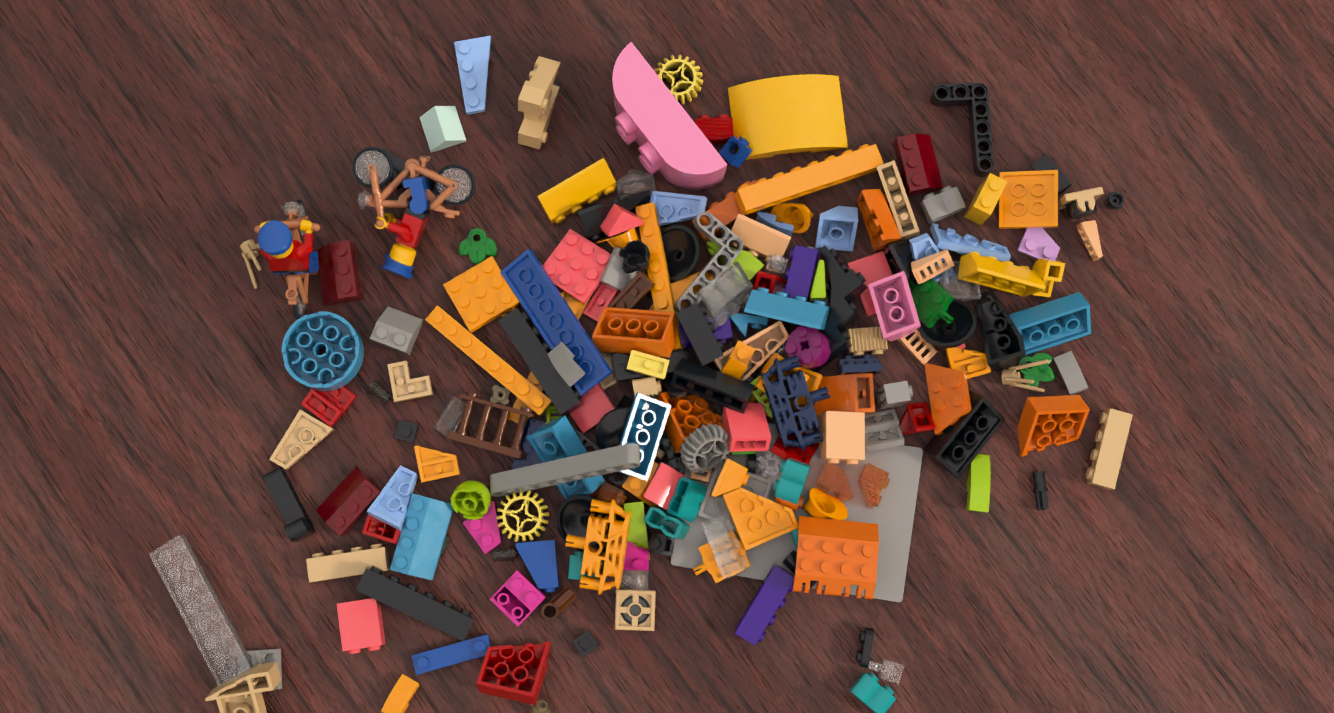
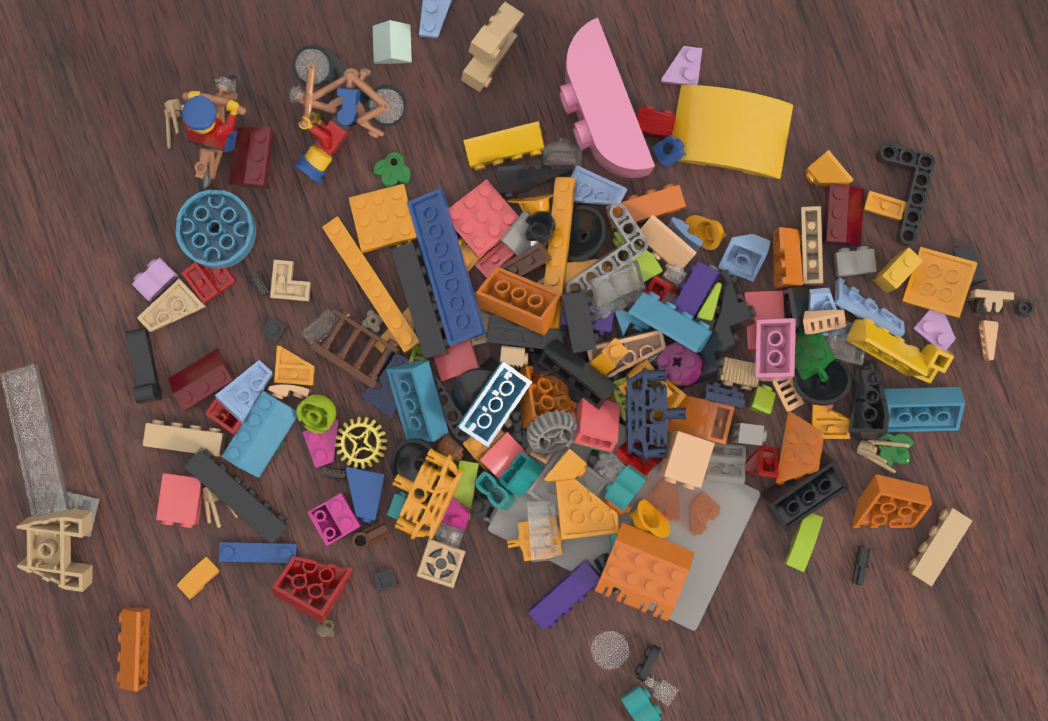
camera: 20 degrees right, 5 degrees up
(276, 418) = (154, 279): none -> lavender brick
(391, 613) = (210, 497): none -> tan plant
(396, 330) = (292, 229): light grey slope -> none
(434, 486) = (285, 390): none -> light nougat slope
(565, 365) = (442, 313): light grey slope -> none
(565, 470) = (413, 413): light grey beam -> none
(619, 220) = (536, 187): coral slope -> none
(647, 364) = (521, 336): light yellow plate -> none
(682, 65) = (644, 49): light yellow gear -> none
(726, 71) = (684, 68): none -> lavender wing
(808, 179) = (731, 200): light orange brick -> none
(824, 645) = (609, 649): none -> clear tile
(889, 126) = (827, 171): none -> light orange slope
(896, 360) = (762, 400): none -> lime slope
(953, 144) = (884, 206): none -> light orange plate
(1070, 373) = (926, 462): light grey slope -> none

